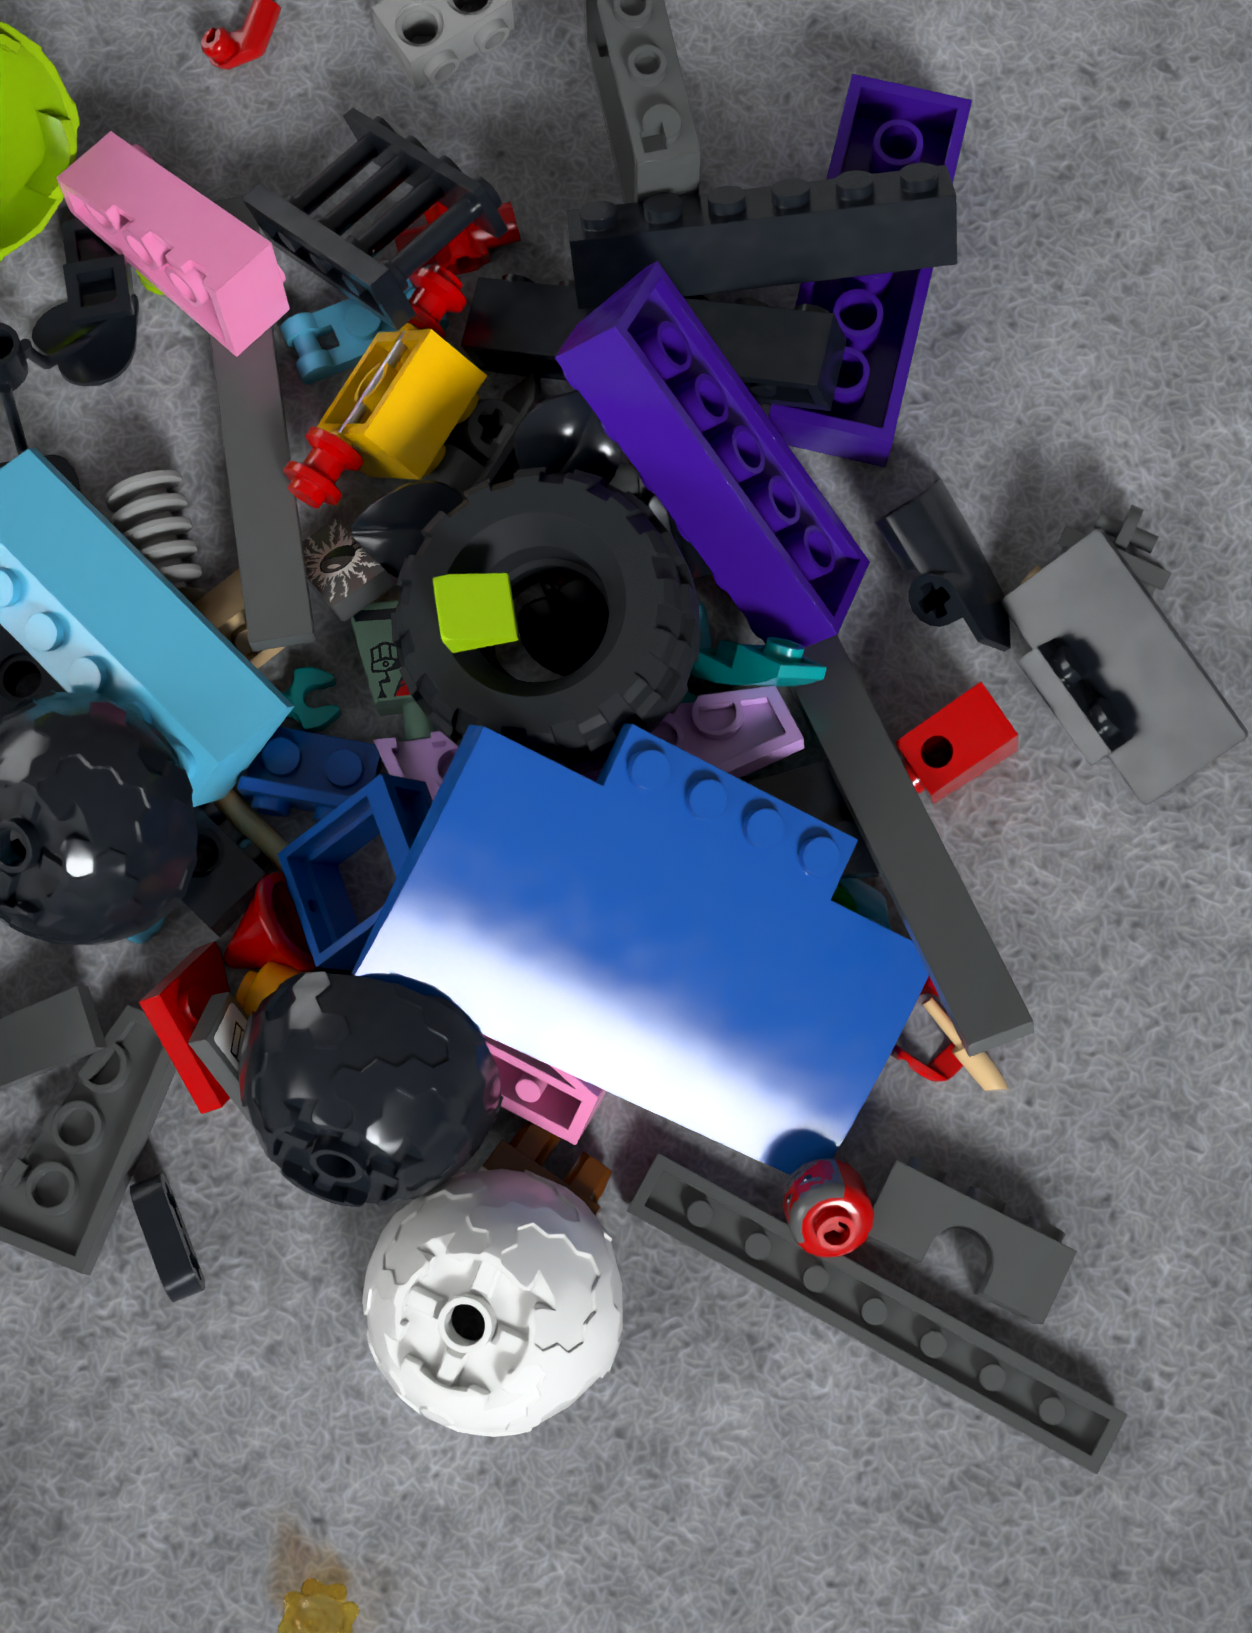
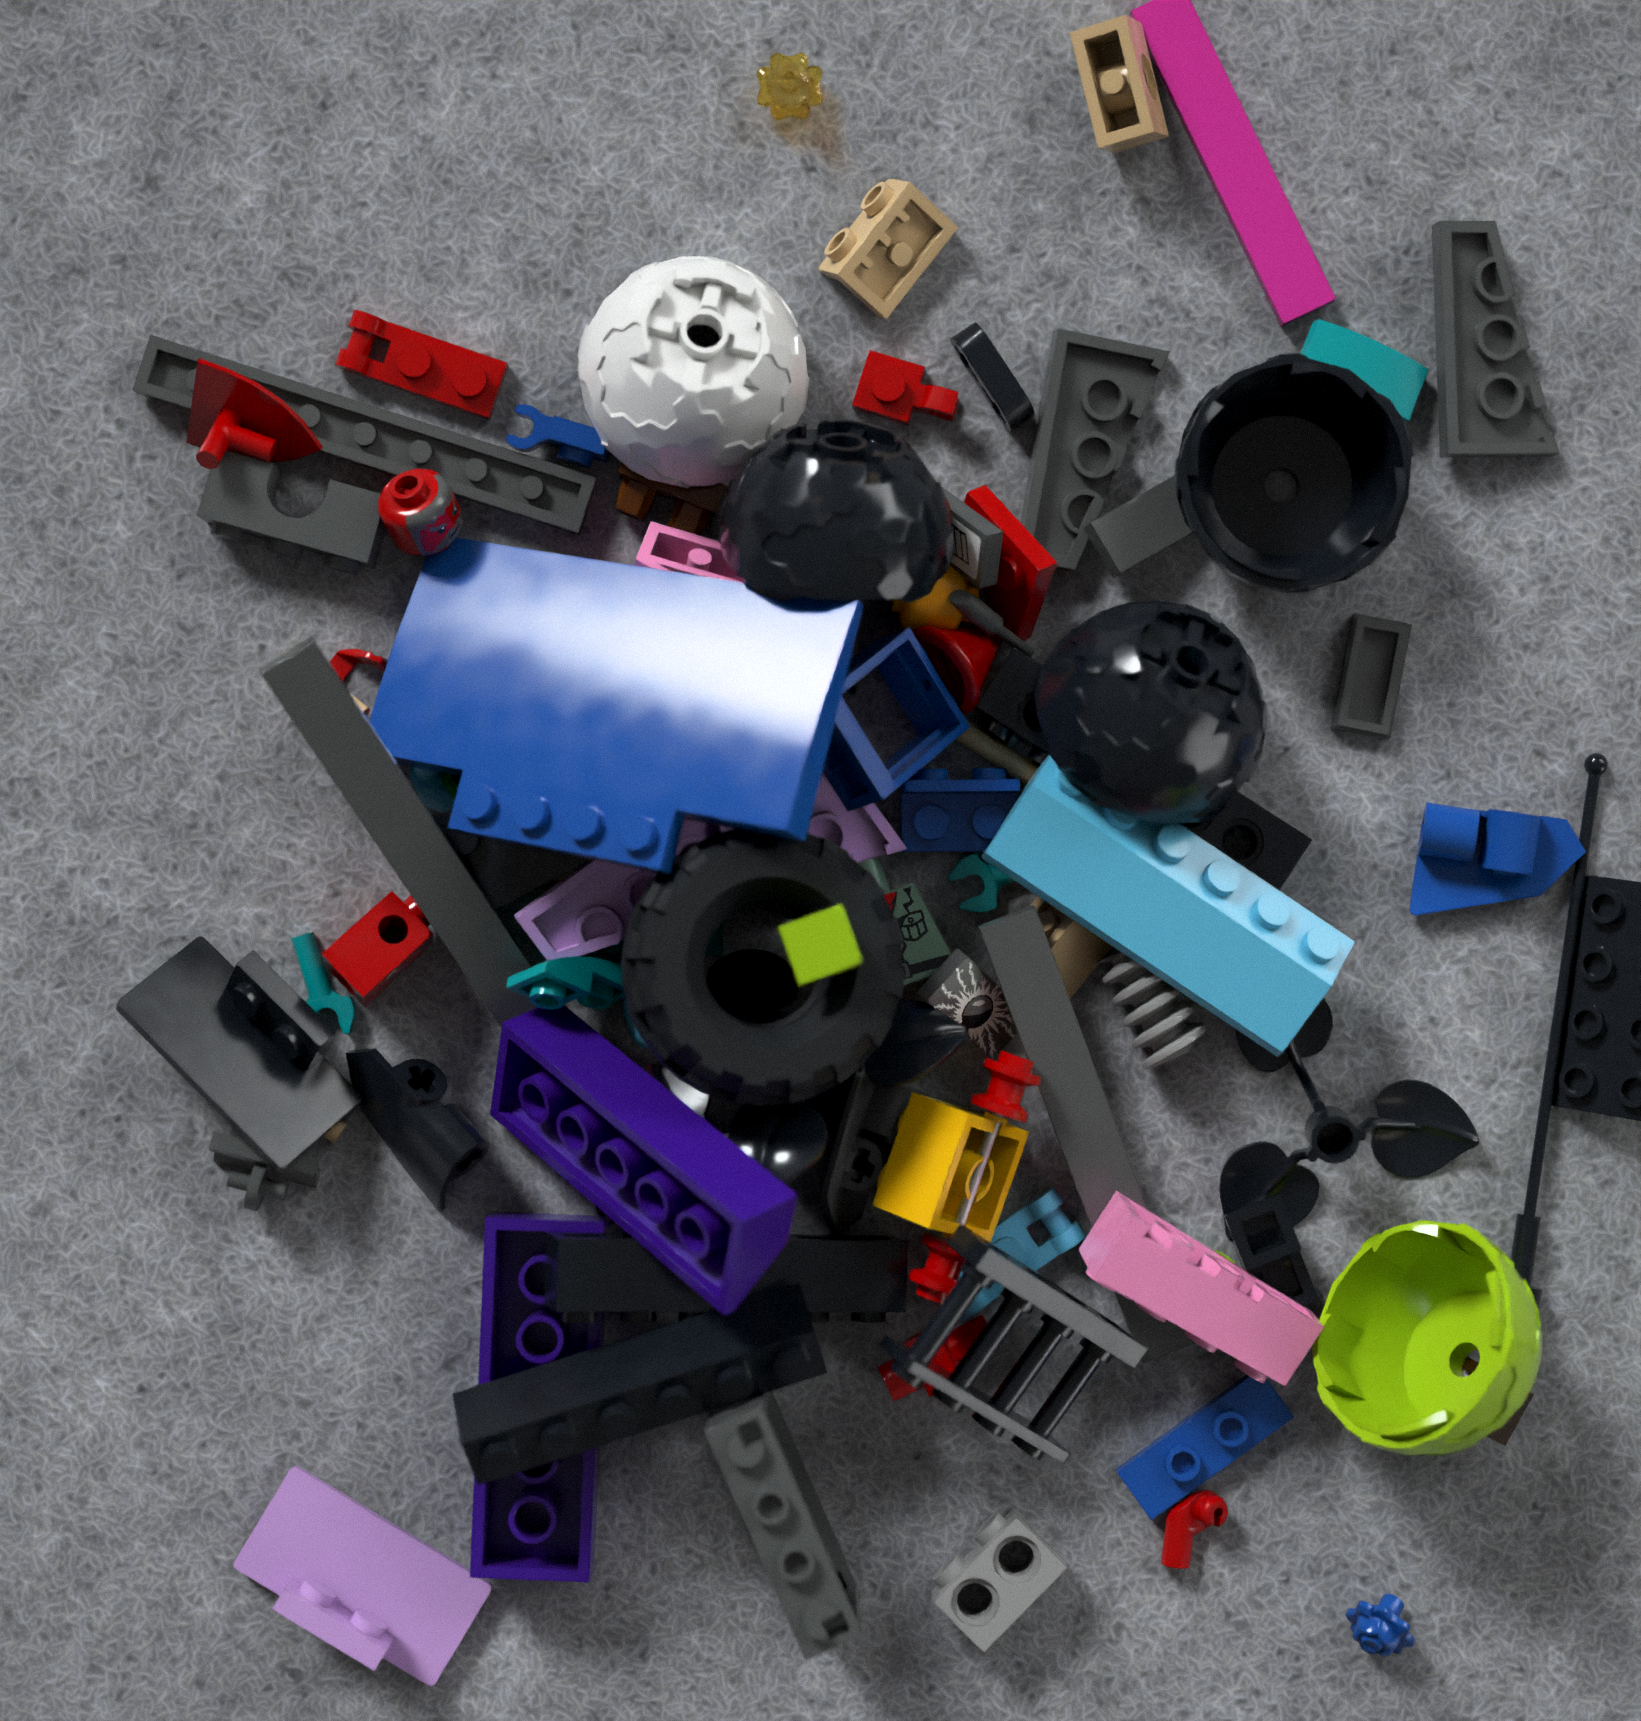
camera: 165 degrees right, 10 degrees up
(213, 109) = (1203, 1444): none -> blue plate
(233, 964) = (986, 619): none -> dark grey piece
(249, 1411) = (887, 245): none -> tan bracket
(278, 1247) = (895, 388): none -> red plate
(641, 1254) = (575, 441): none -> blue plate
(795, 1379) = (424, 365): none -> red plate
(1007, 1350) = (244, 419): none -> red shield
(1027, 724) = (318, 985): none -> teal bar
(1087, 135) = (360, 1579): none -> lavender bracket

